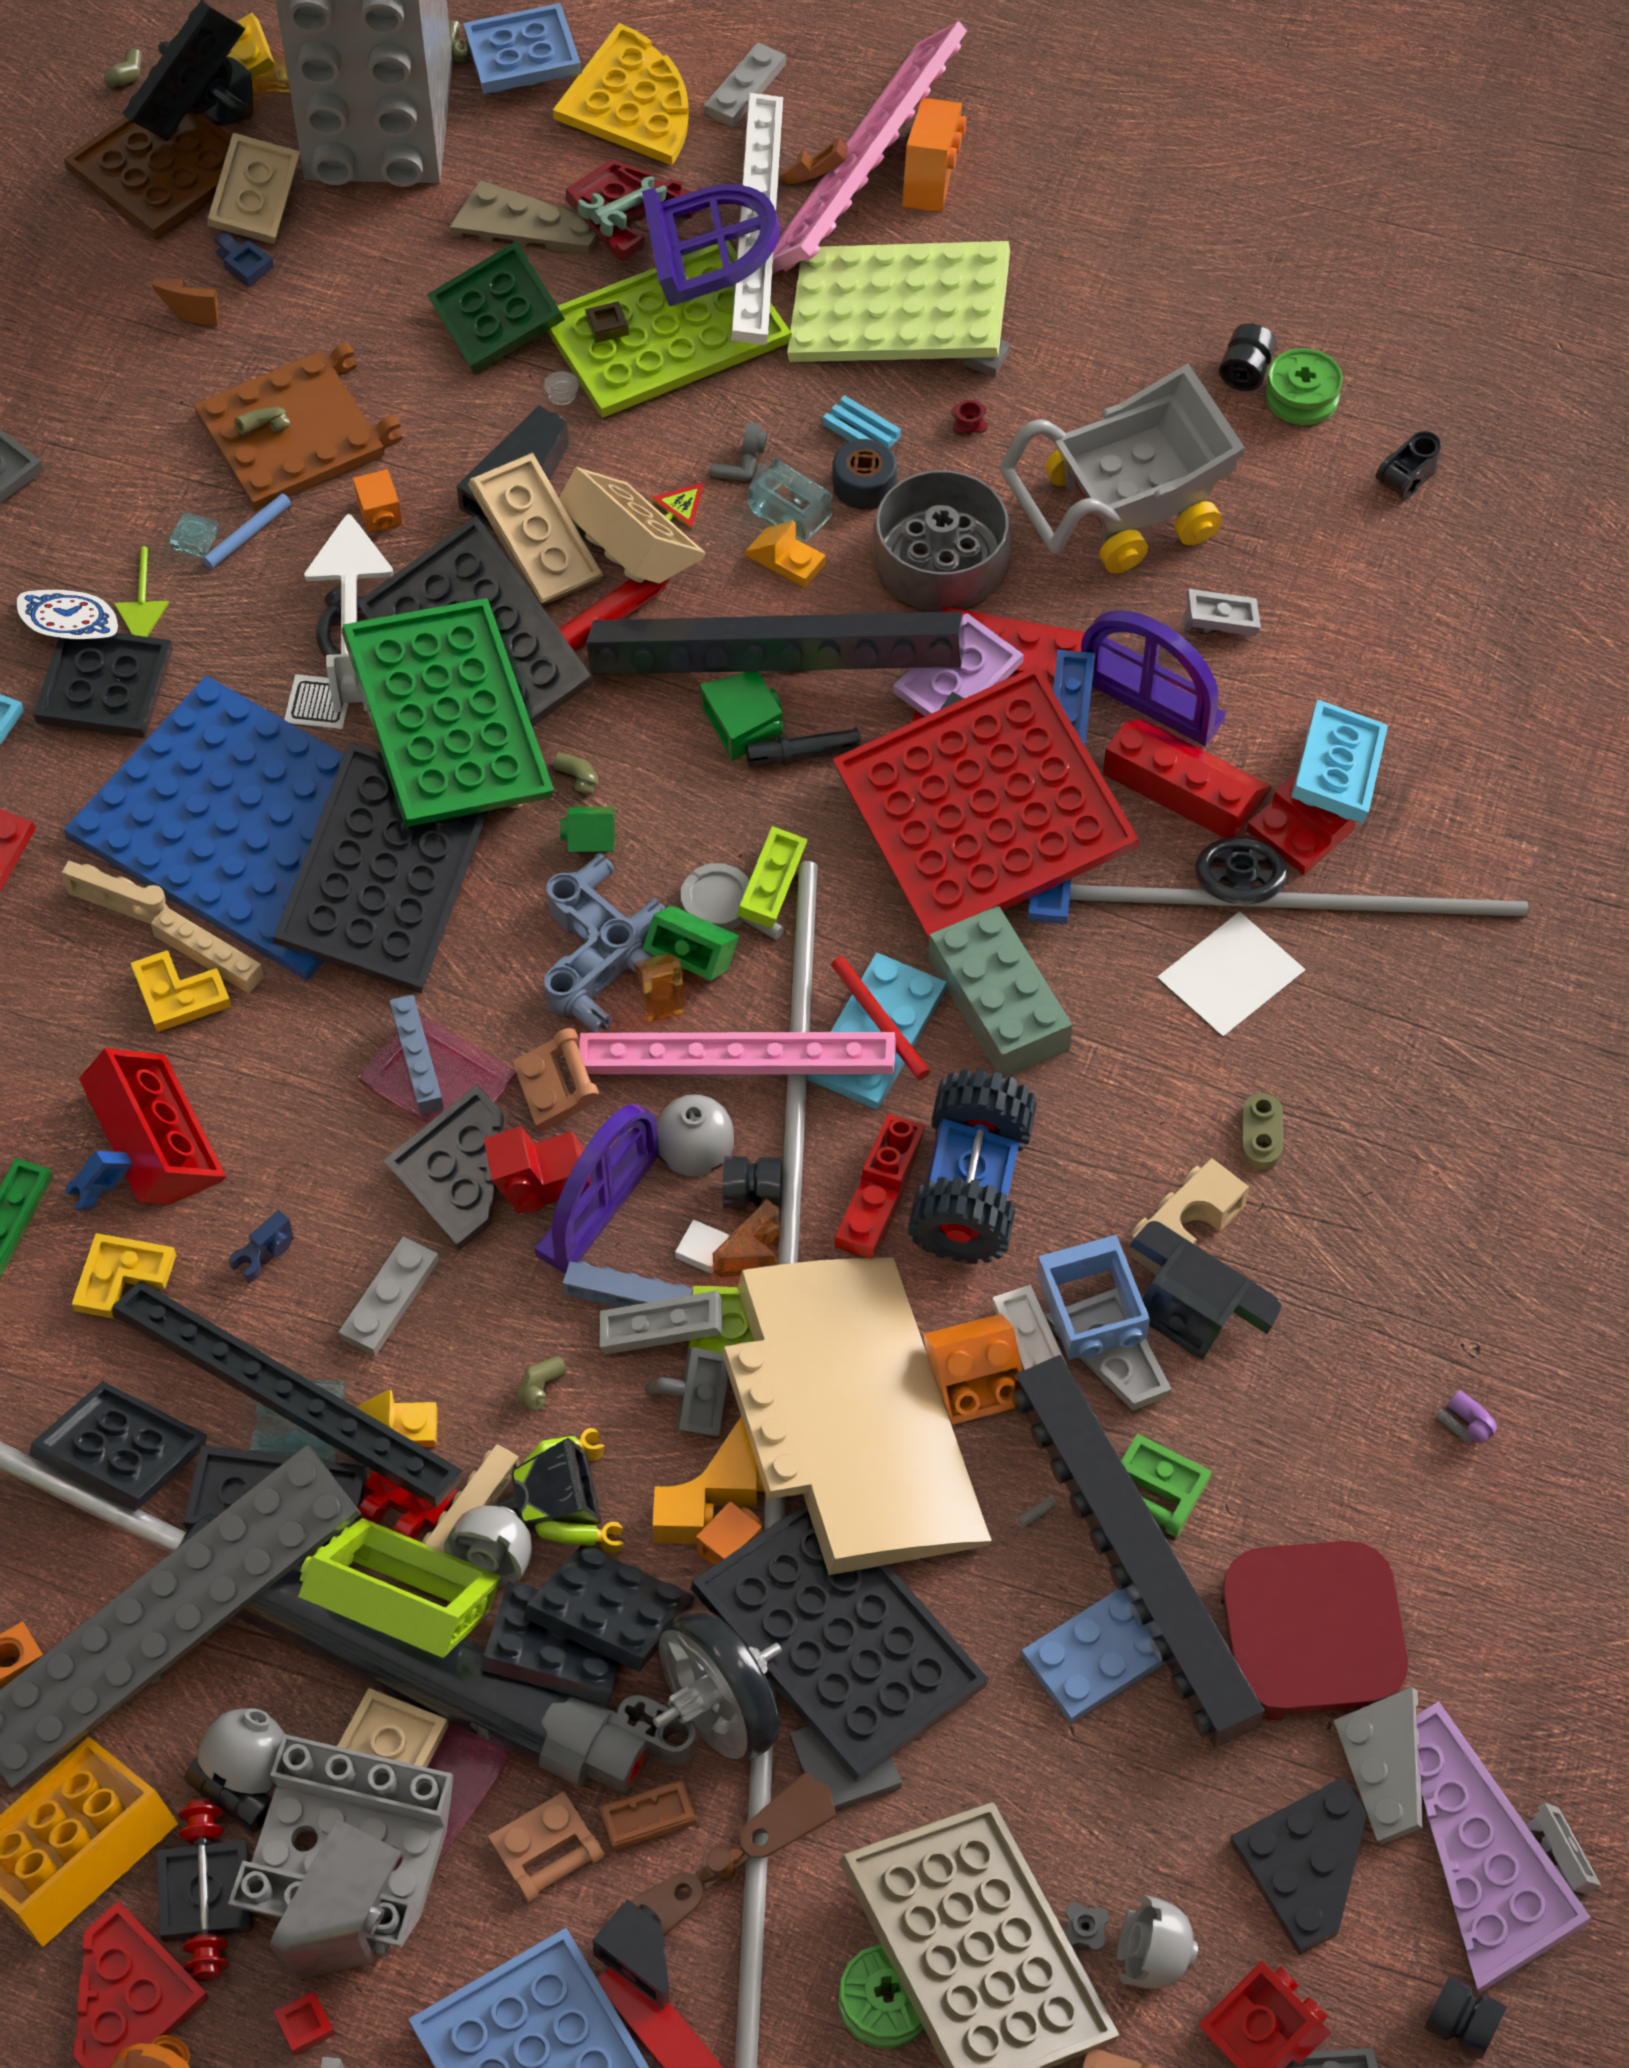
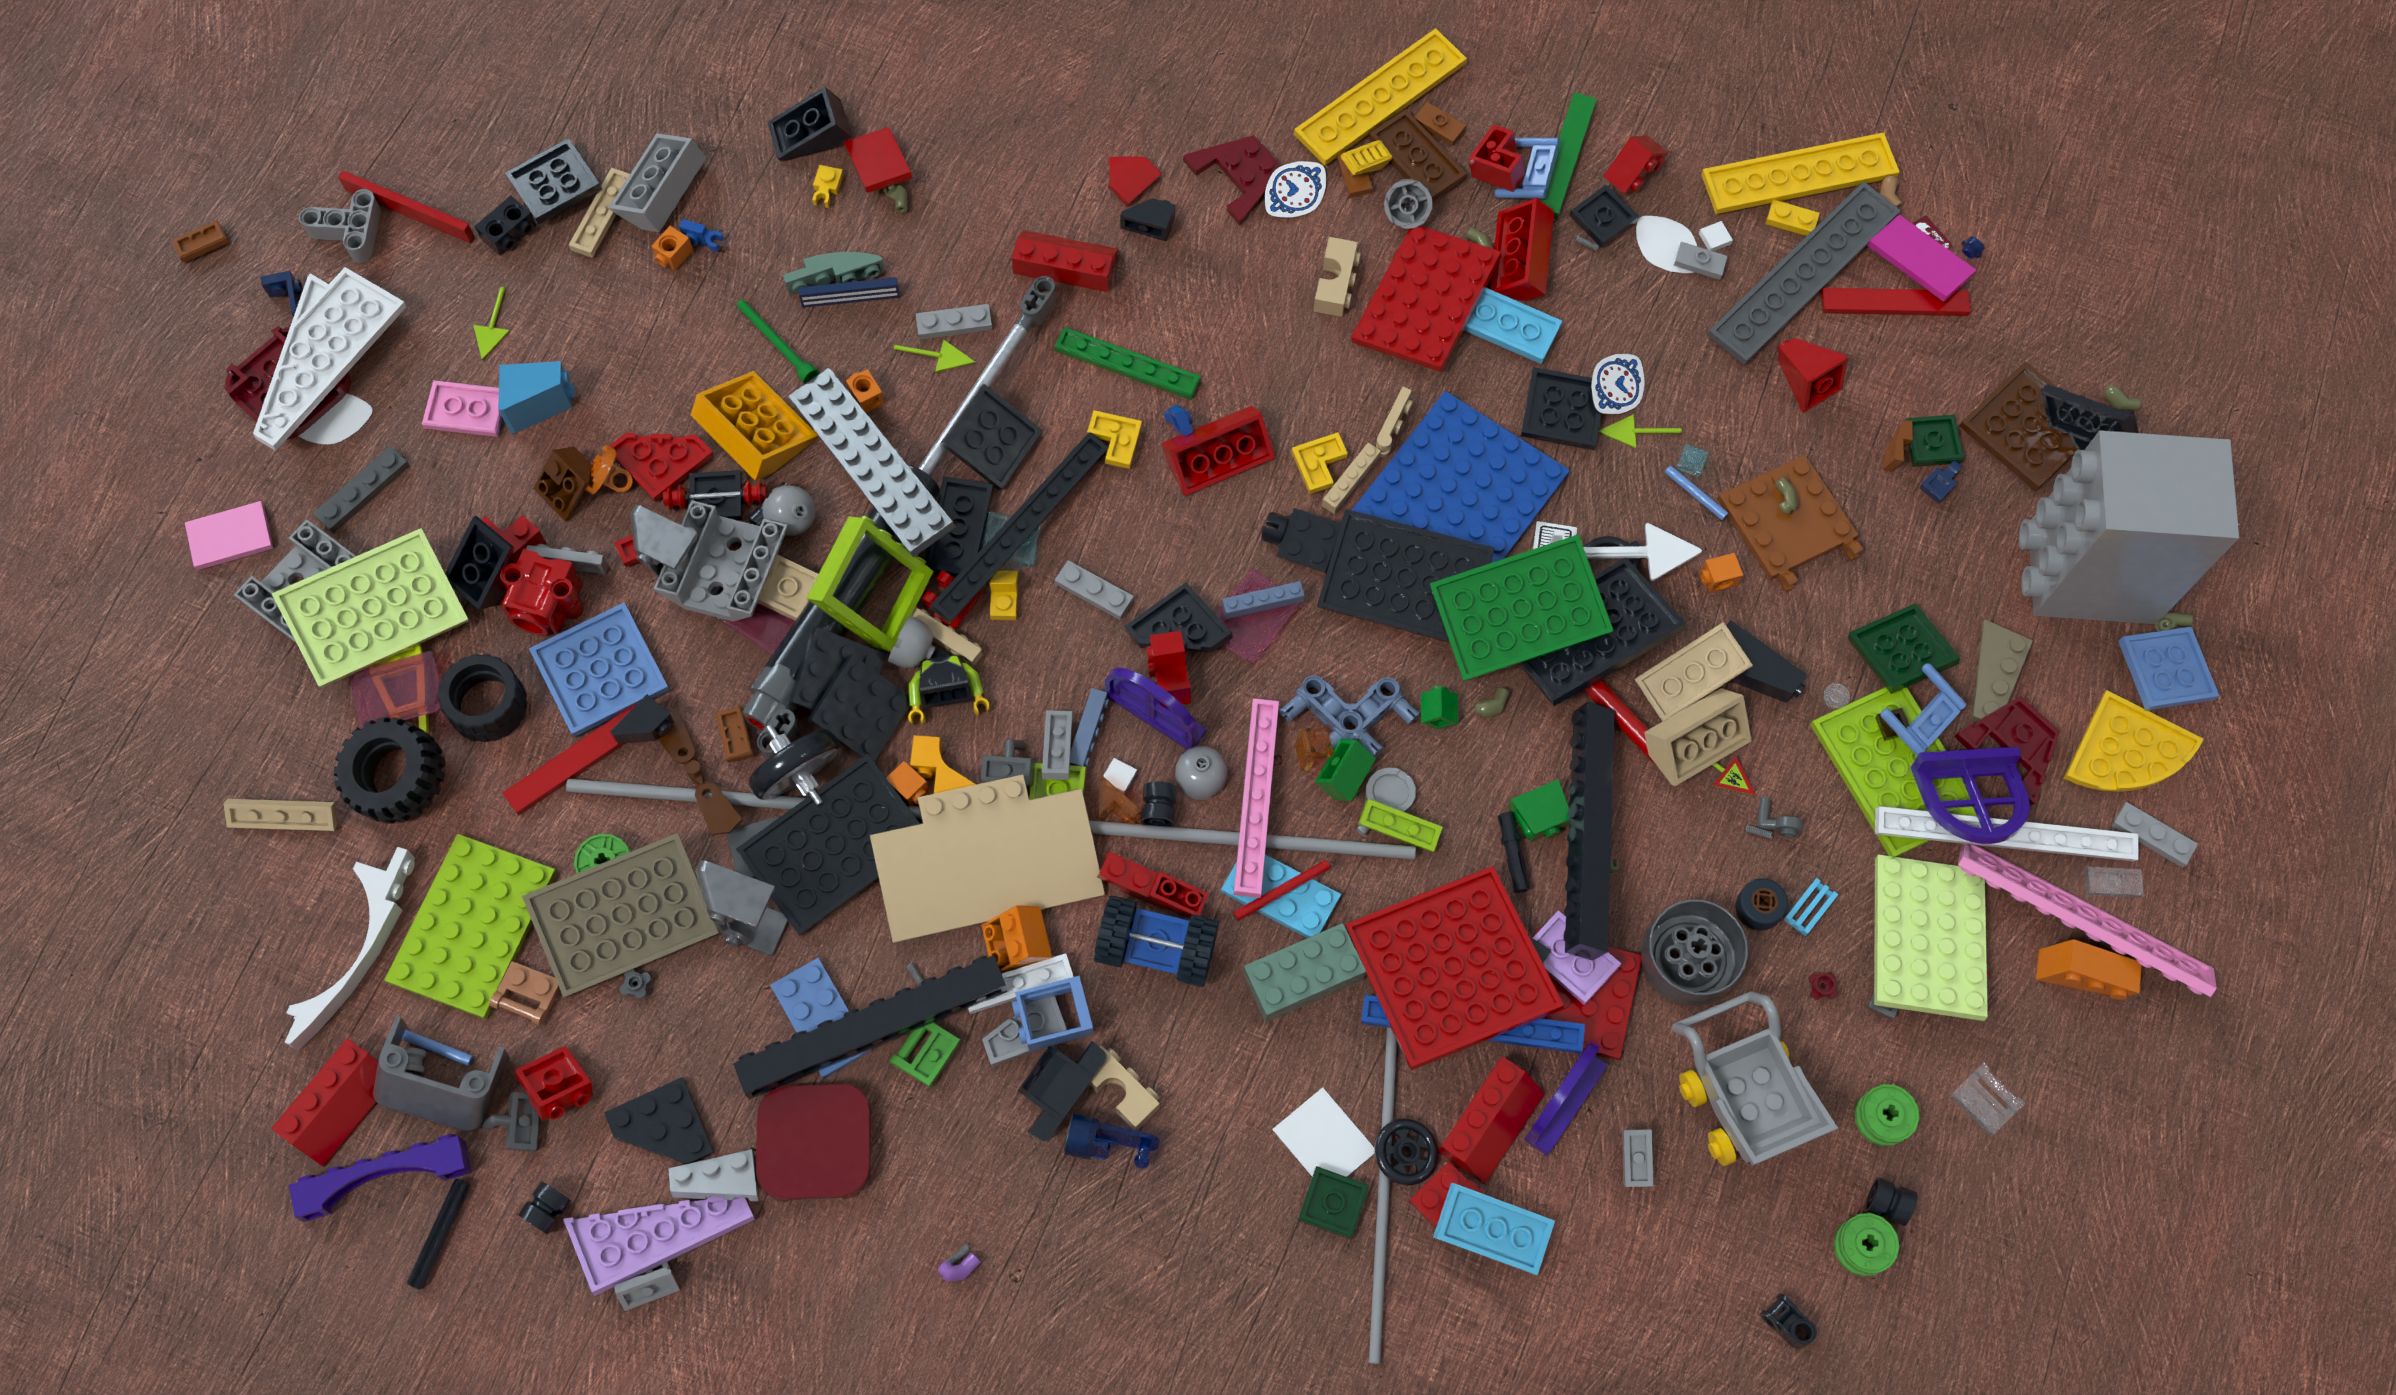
camera: 90 degrees right, 10 degrees up
(62, 389) = (1811, 371): none -> red slope
(179, 257) = (1935, 441): none -> dark green plate
(253, 188) = (2004, 483): tan plate -> none
(265, 1242) = (1132, 518): dark blue plate -> none
(309, 1008) = (1302, 538): none -> black plate
(534, 1379) = (1027, 673): olive arm -> none
(538, 1836) = (729, 673): nougat plate -> none
(545, 1085) = (1243, 685): nougat plate -> none
(599, 274) = (1932, 719): none -> medium blue plate
(613, 213) = (1993, 721): sand green bar -> none
(778, 510) = (1721, 867): clear light blue window -> none
(786, 555) = (1687, 849): light orange slope -> none
(810, 168) = (2070, 884): dark orange slope -> none
(812, 123) = (2114, 882): none -> clear plate
(969, 1734) = (740, 908): none -> flat silver windscreen
(1109, 270) = (1982, 1104): none -> clear plate
(1135, 356) = (1899, 1106): none -> bright green wheel
(1155, 1944) = (611, 1022): light grey cylinder -> none
(1262, 1127) = (1191, 1147): olive plate -> none
(1269, 1253) = (1085, 1129): none -> clear blue piece
(1320, 955) = (1333, 1202): none -> dark green plate

